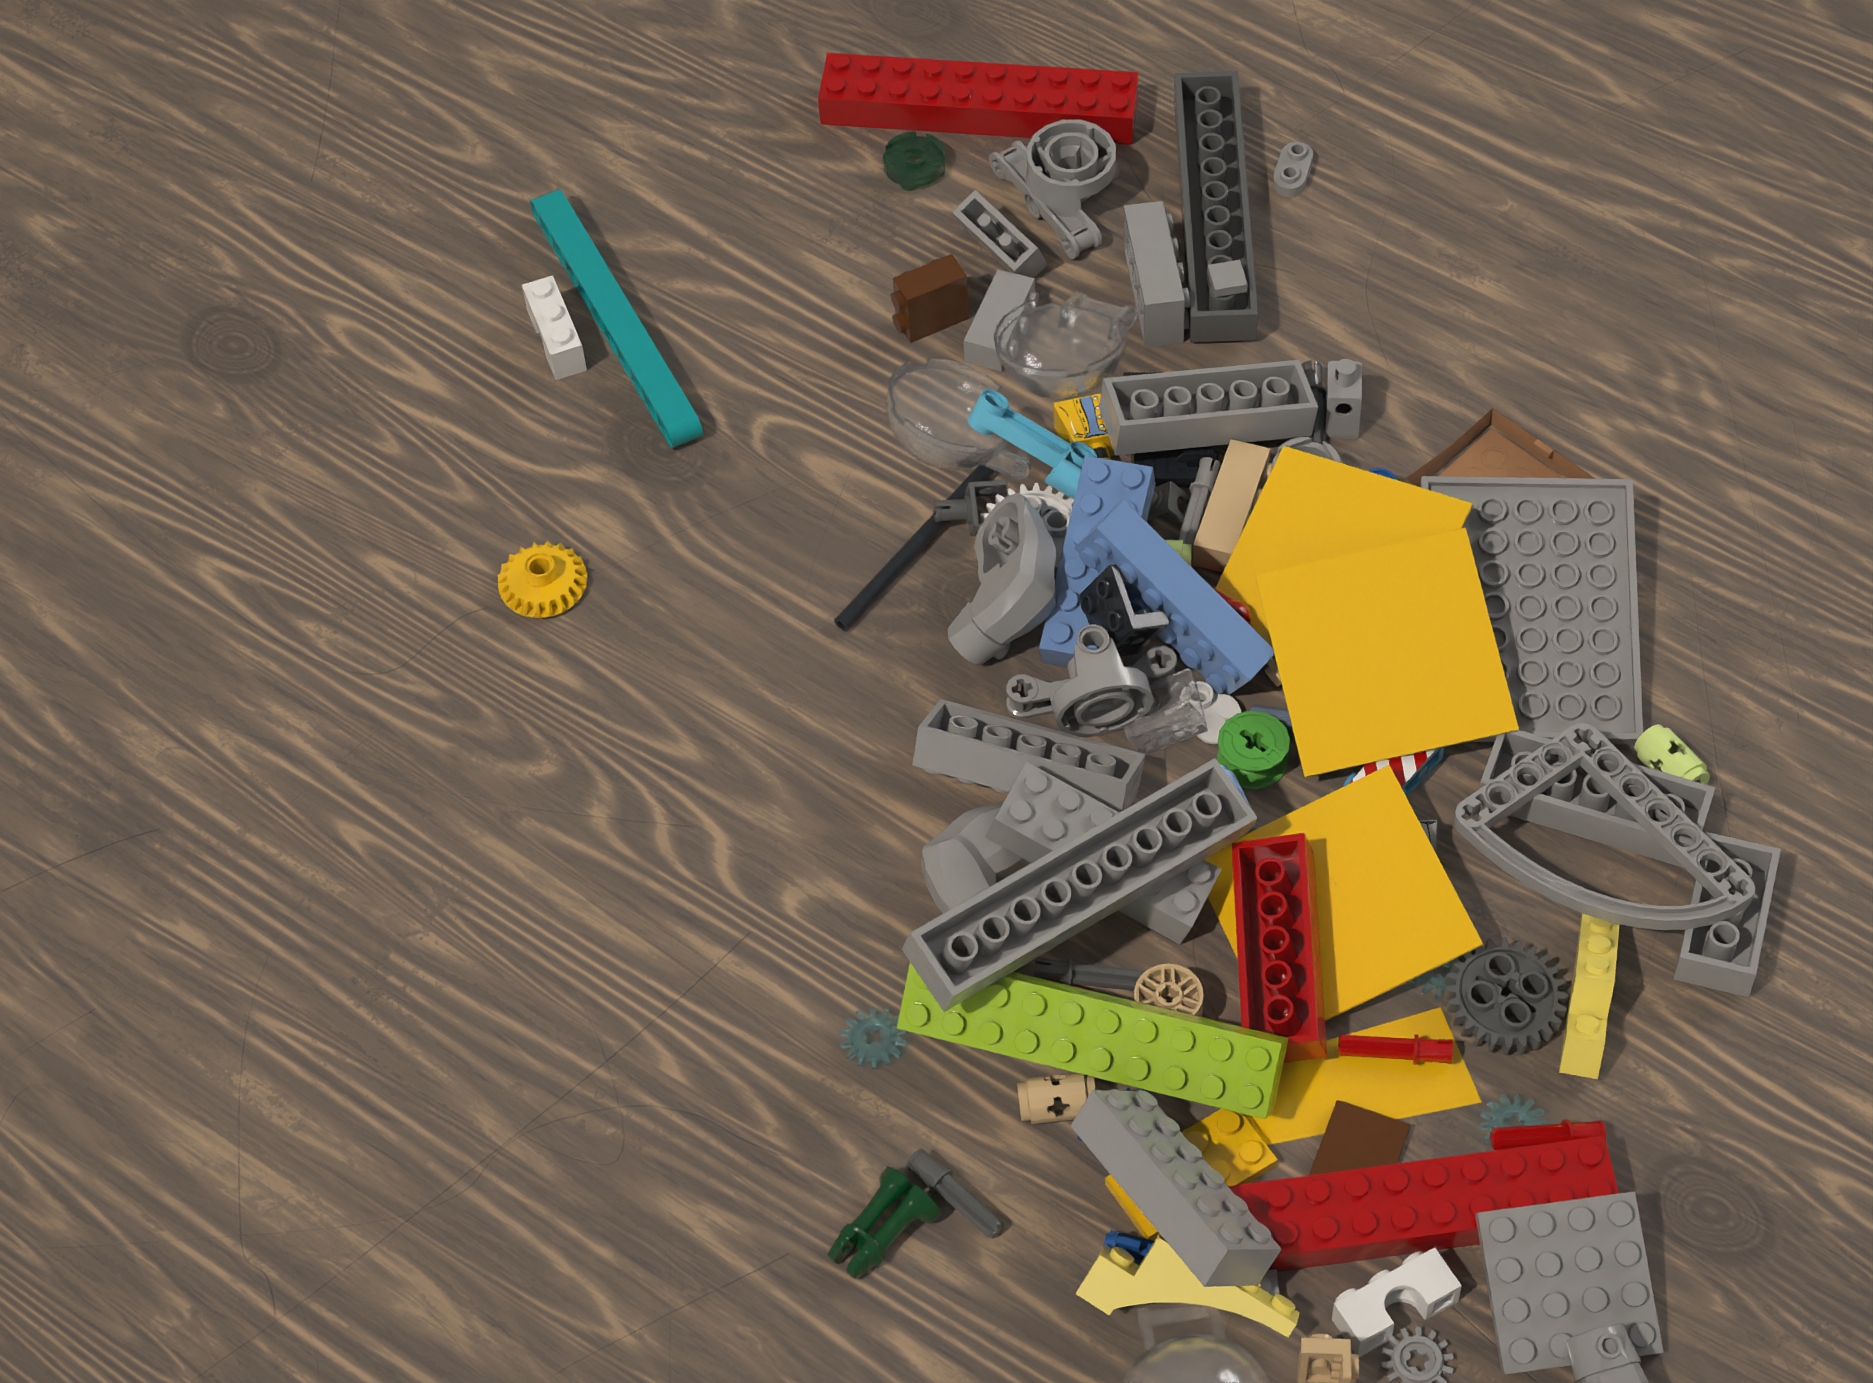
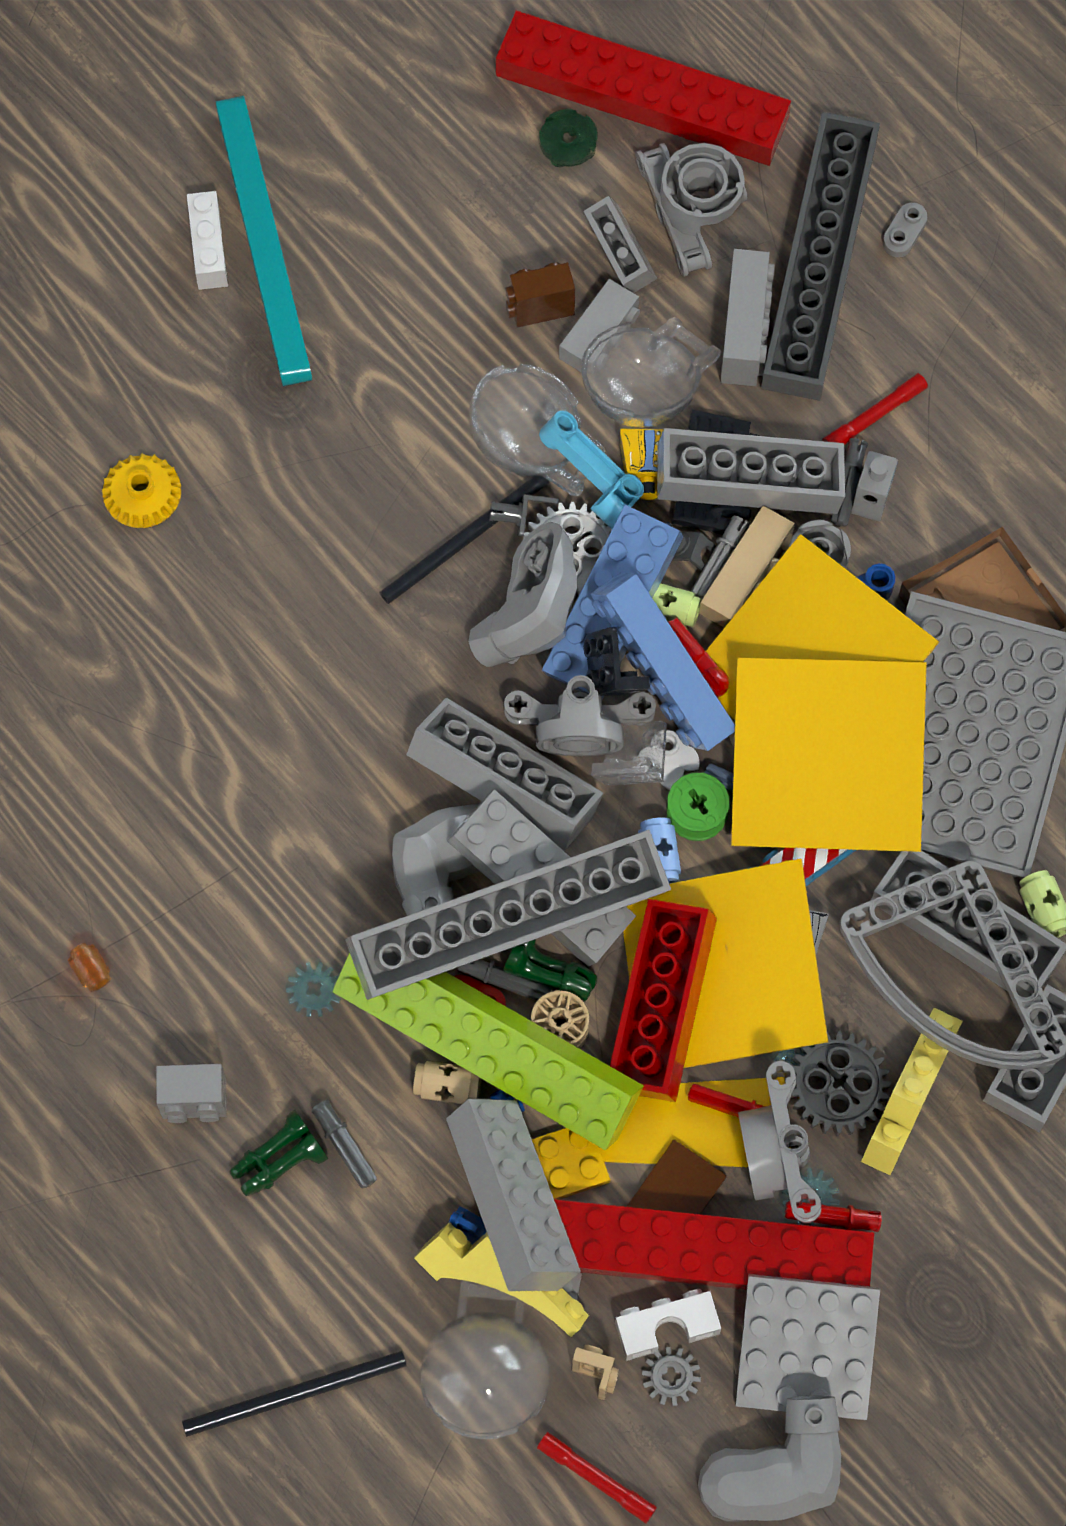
camera: 10 degrees right, 15 degrees up
(605, 1071) = (89, 967): none -> clear orange brick
(761, 1173) = (191, 1092): none -> light grey brick
(1114, 951) = (533, 965): none -> dark green piece
(1227, 278) = (805, 344): light grey tile -> none
(1341, 315) = (901, 395): none -> red piece
(1453, 1072) = (767, 1144): none -> light grey piece

